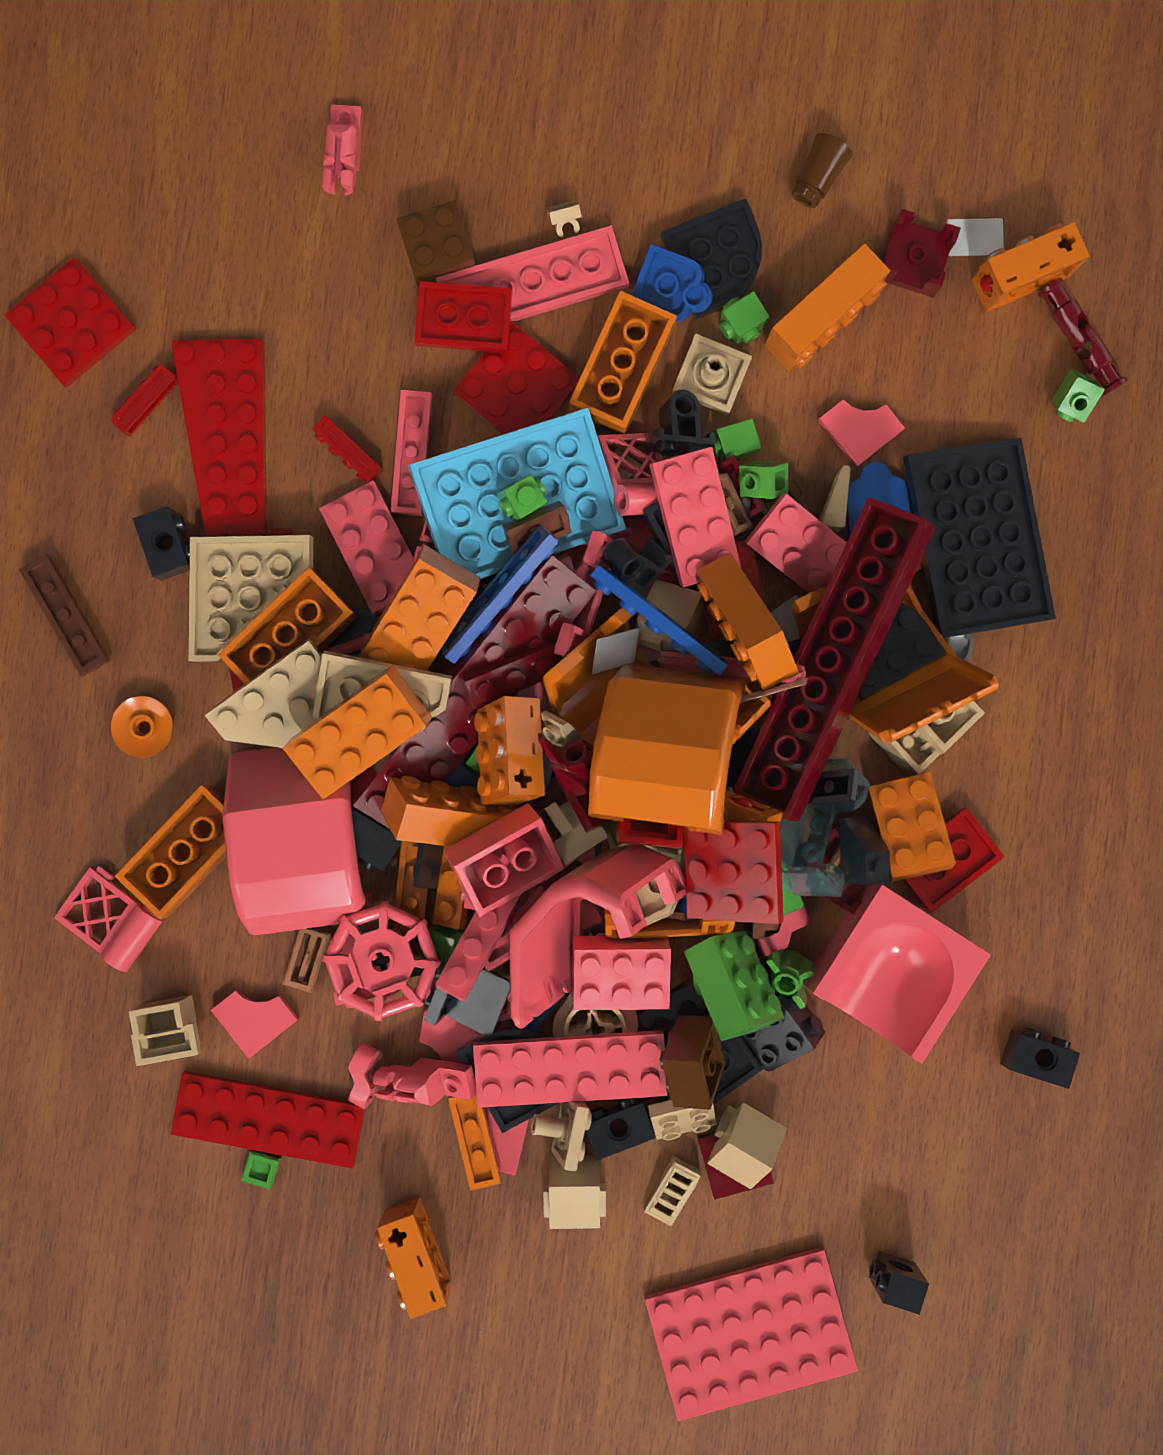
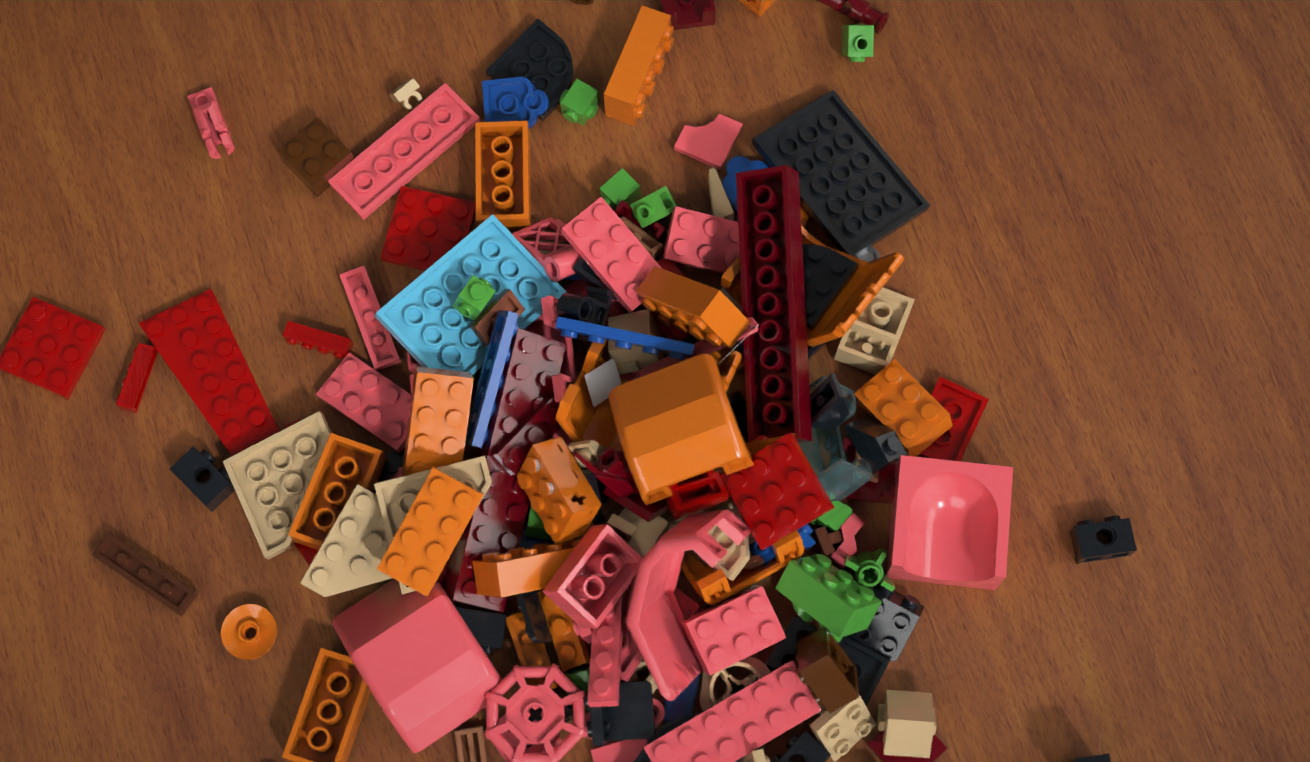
camera: 25 degrees left, 15 degrees down
(463, 317) = (363, 197): red plate -> none
(679, 431) = (567, 198): black pin -> none
(713, 373) = (575, 153): tan plate -> none

